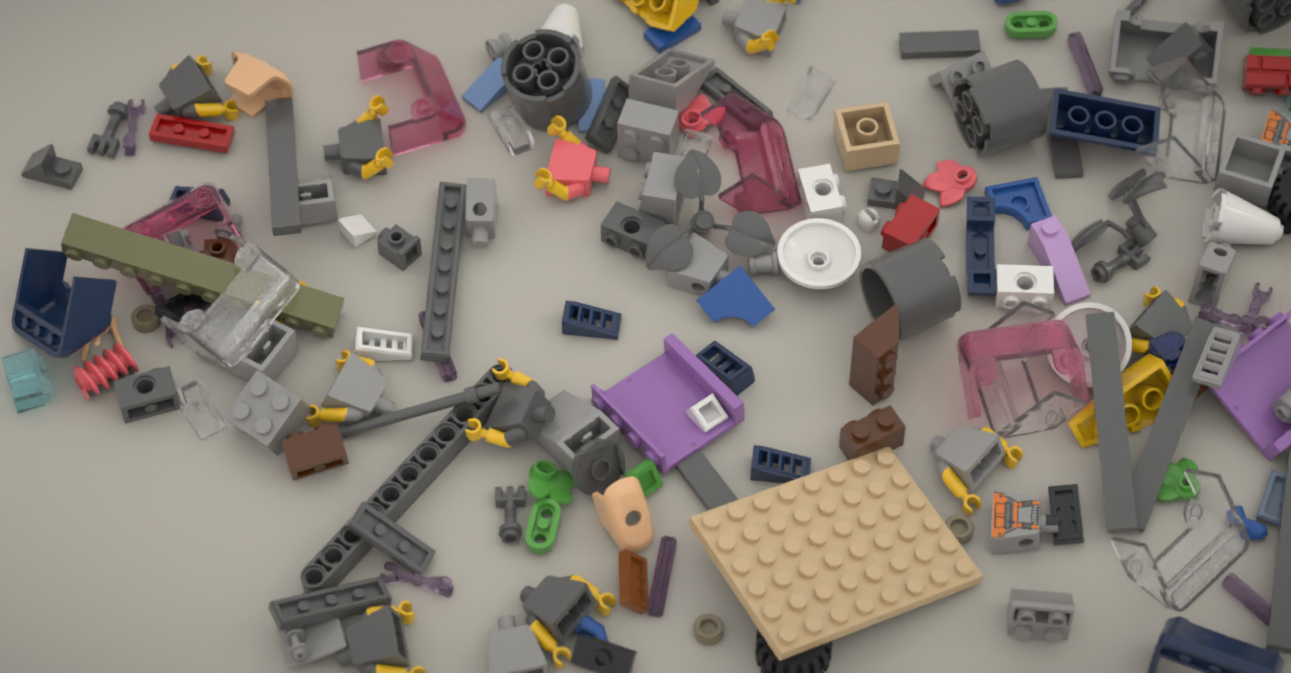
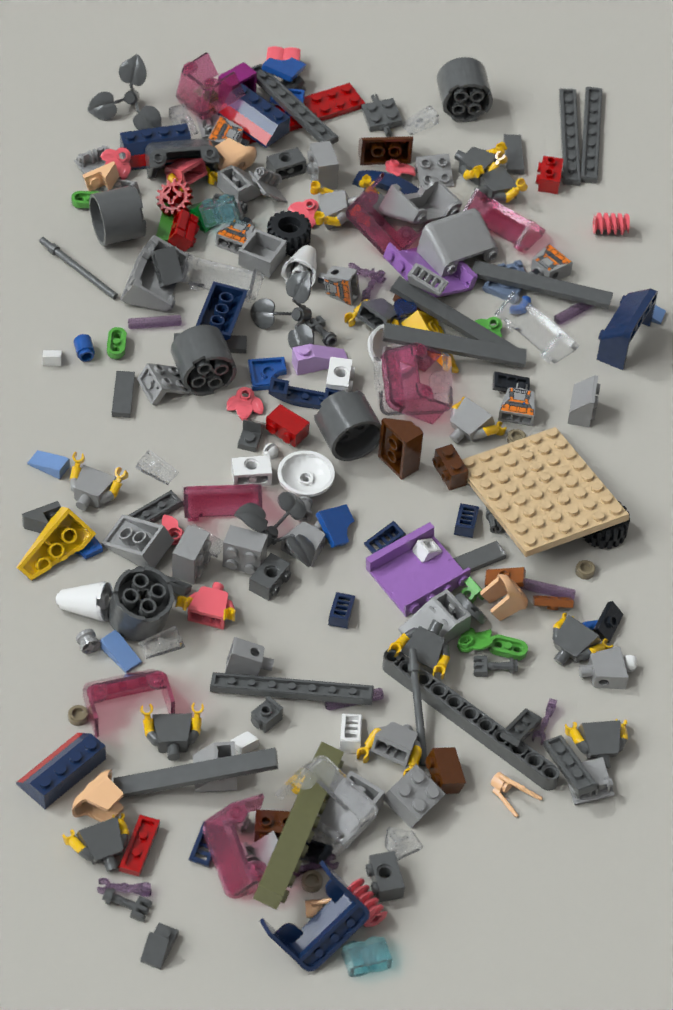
camera: 90 degrees left, 5 degrees down
(300, 46) = (63, 768): none -> dark blue slope
(302, 526) = (503, 784): none -> light nougat plant
(669, 517) = (516, 574): none -> dark orange plate
(866, 136) = (207, 437): tan brick -> none

